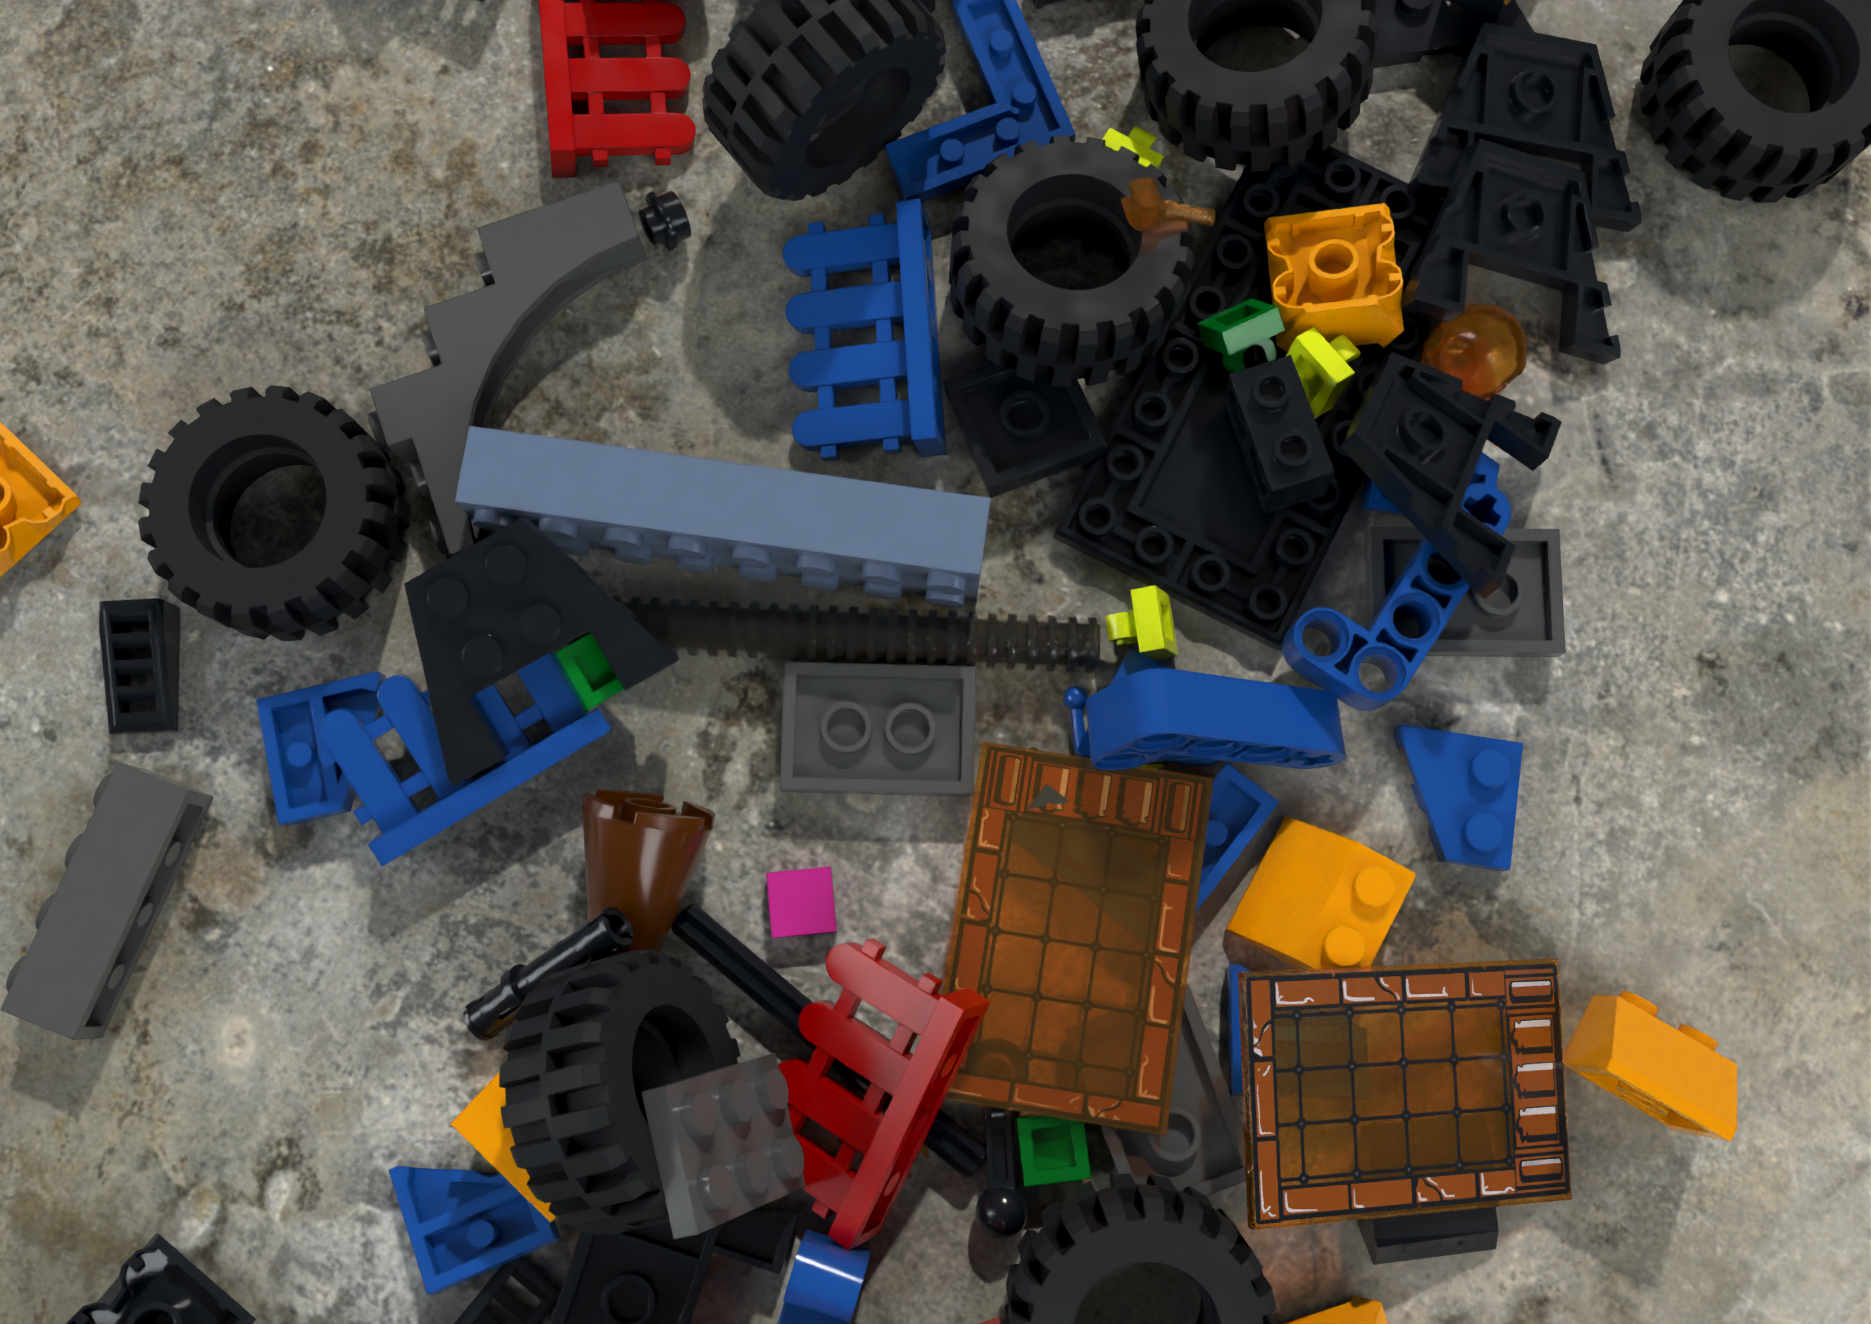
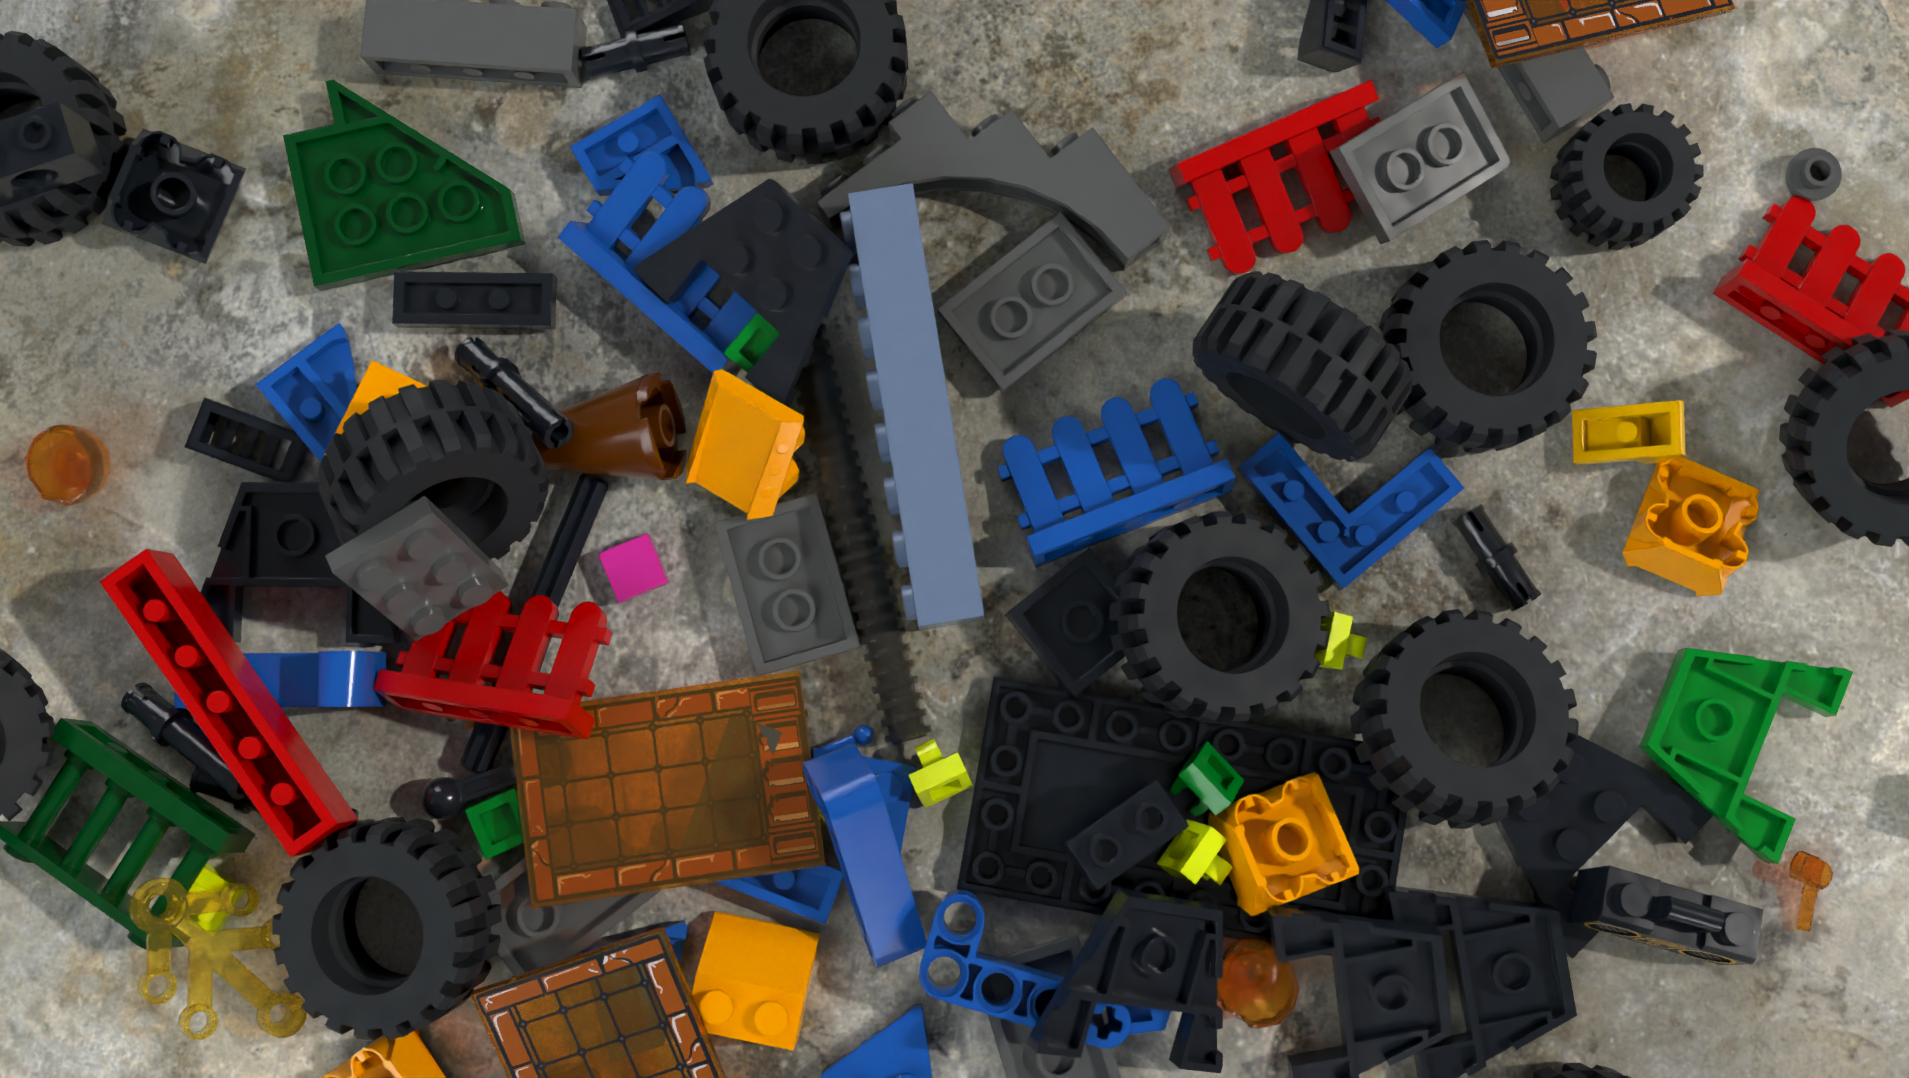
camera: 75 degrees right, 5 degrees up
(194, 716) = (635, 51): none -> black pin
(259, 1063) = (389, 197): none -> dark green wing
(420, 996) = (474, 300): none -> black plate
(649, 359) = (1031, 302): none -> dark grey plate
(665, 220) = (1156, 274): black plate -> none
(703, 720) = (745, 446): none -> light orange slope
(1147, 209) = (1269, 668): clear orange hand -> none

